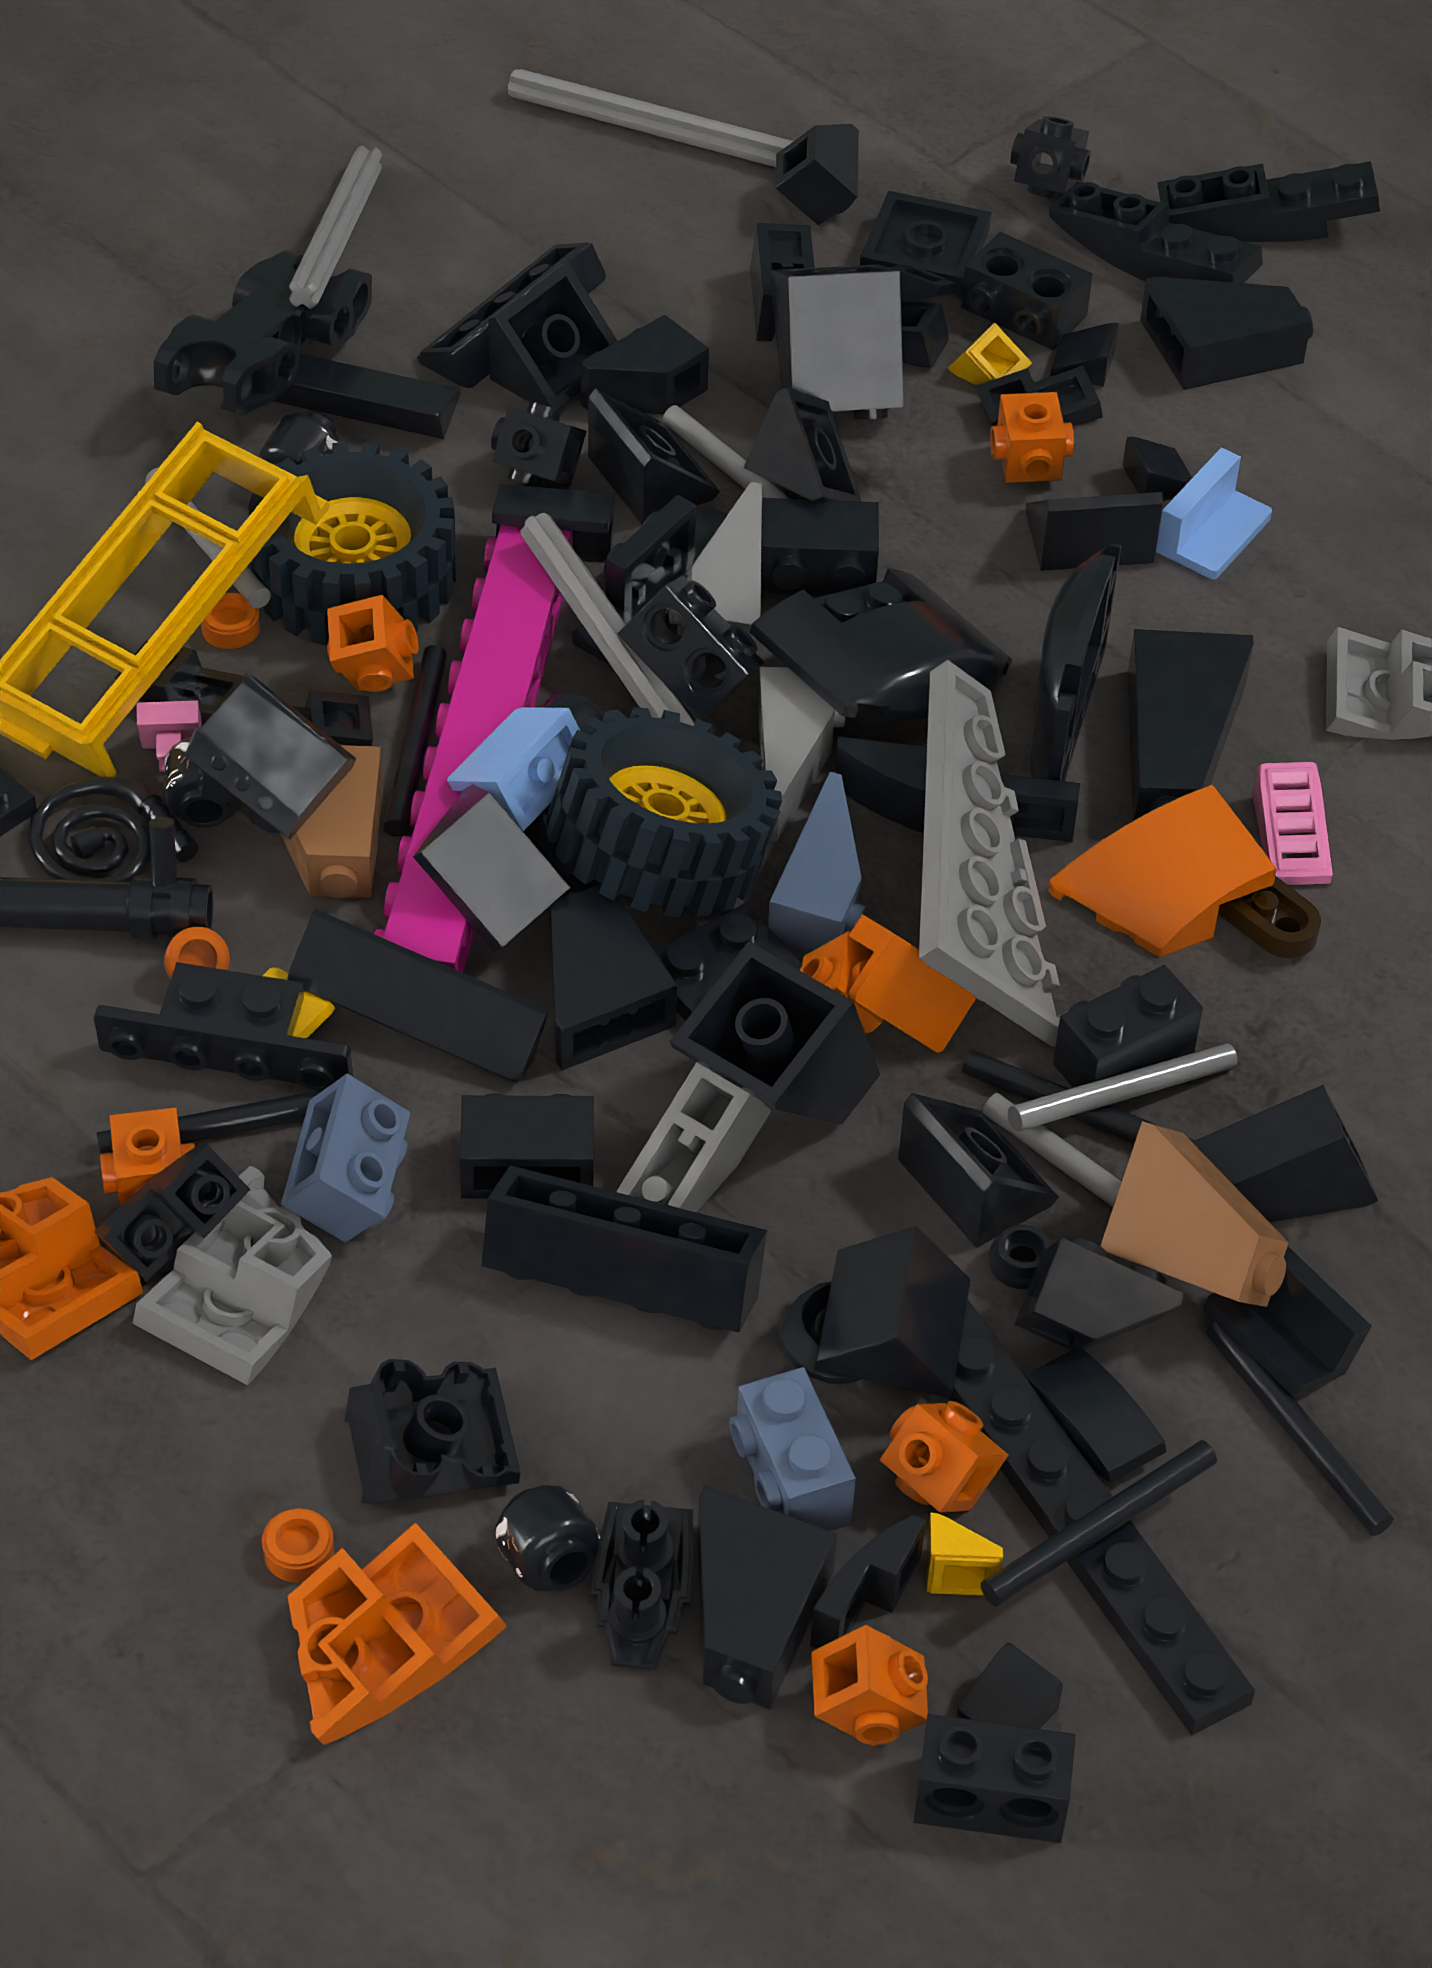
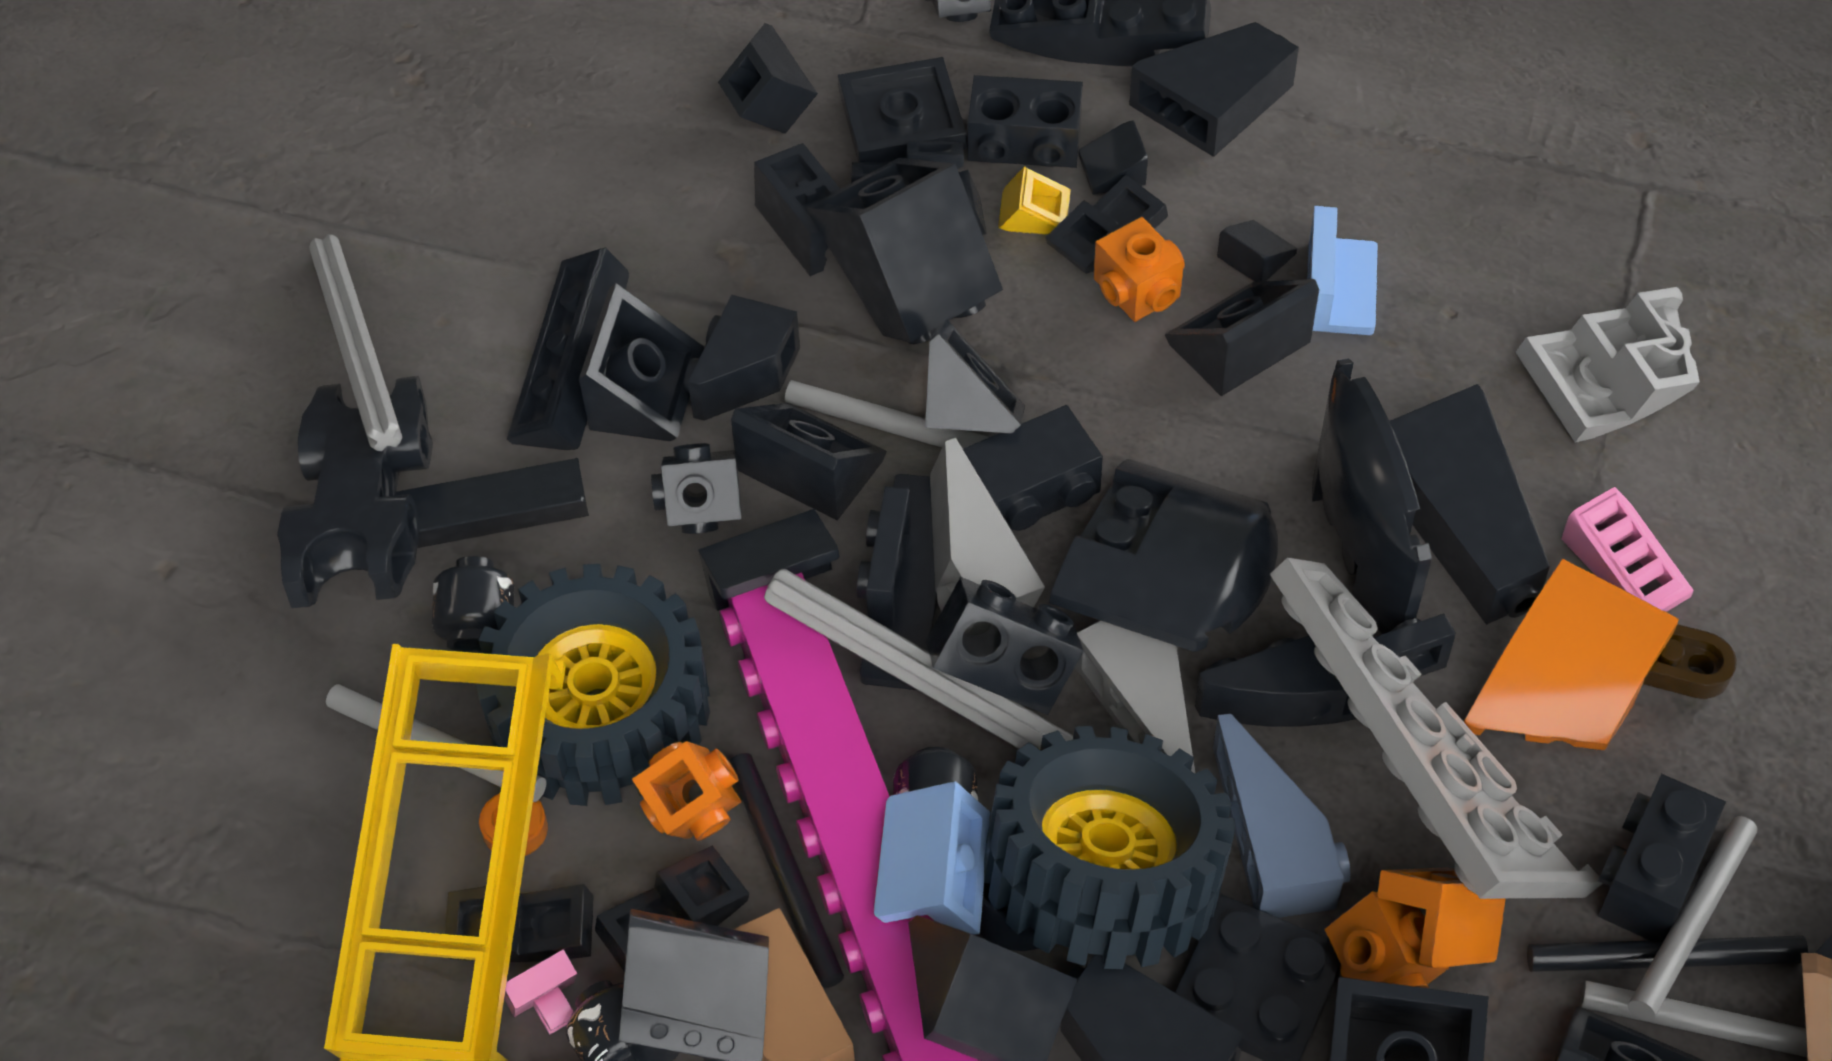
camera: 25 degrees left, 5 degrees up
(645, 117) = (567, 92): light grey axle -> none

